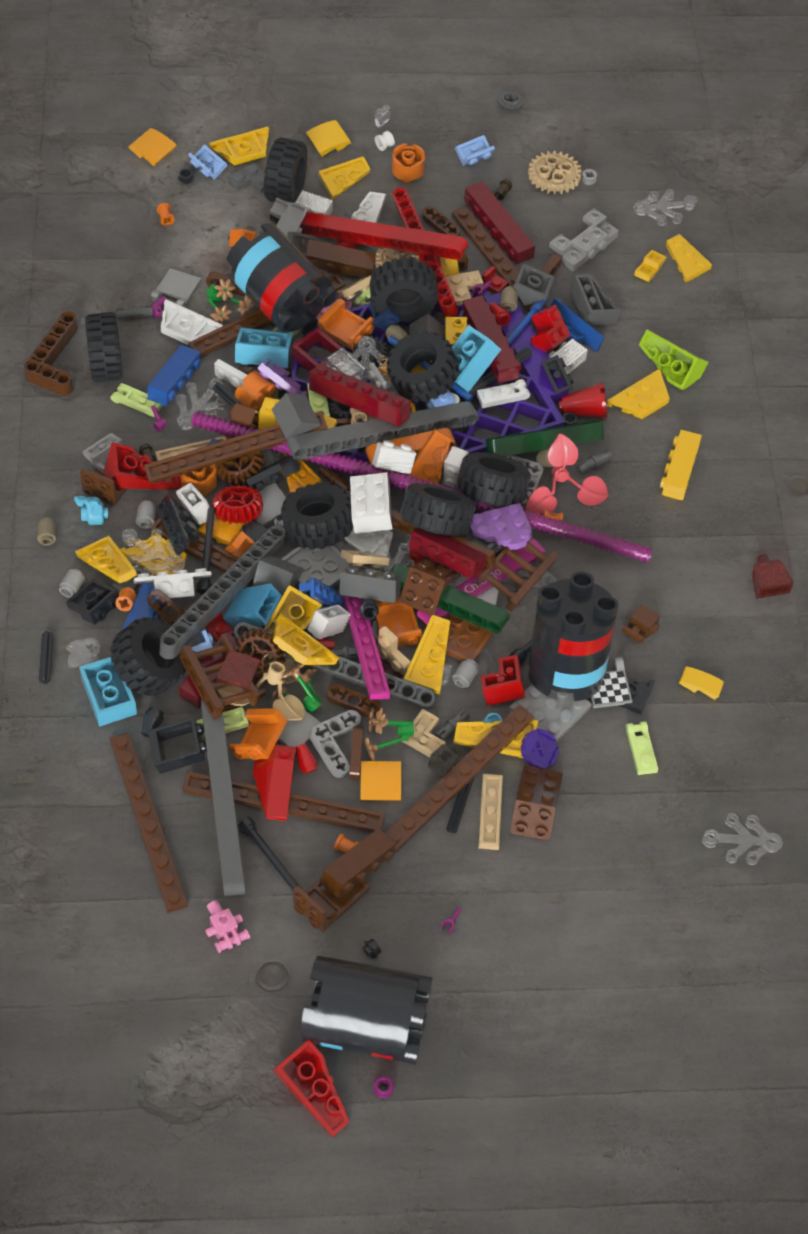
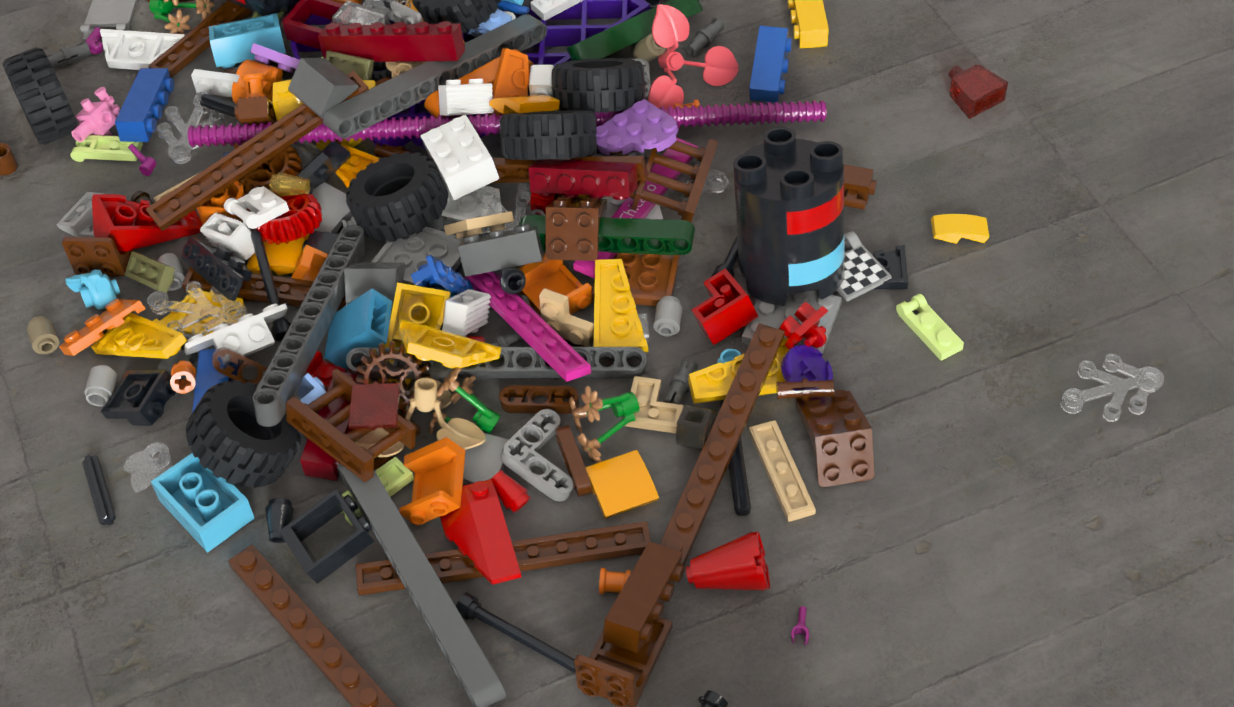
camera: 15 degrees left, 5 degrees down
(92, 536) = (112, 317): none -> orange wing
(131, 511) = (150, 272): none -> olive plate
(138, 374) = (96, 117): none -> bright pink piece
(223, 487) = (261, 202): none -> white plate
(246, 481) = (288, 185): none -> clear yellow cone
(250, 397) = (253, 85): none -> orange bush
(323, 401) = (348, 63): none -> olive plate
(425, 864) = (732, 566): none -> red cone
(434, 477) = (525, 104): none -> light orange slope
(516, 757) = (824, 387): none -> reddish brown pin
(557, 713) = (809, 329): none -> red hips
(628, 504) = (770, 64): none -> blue wedge

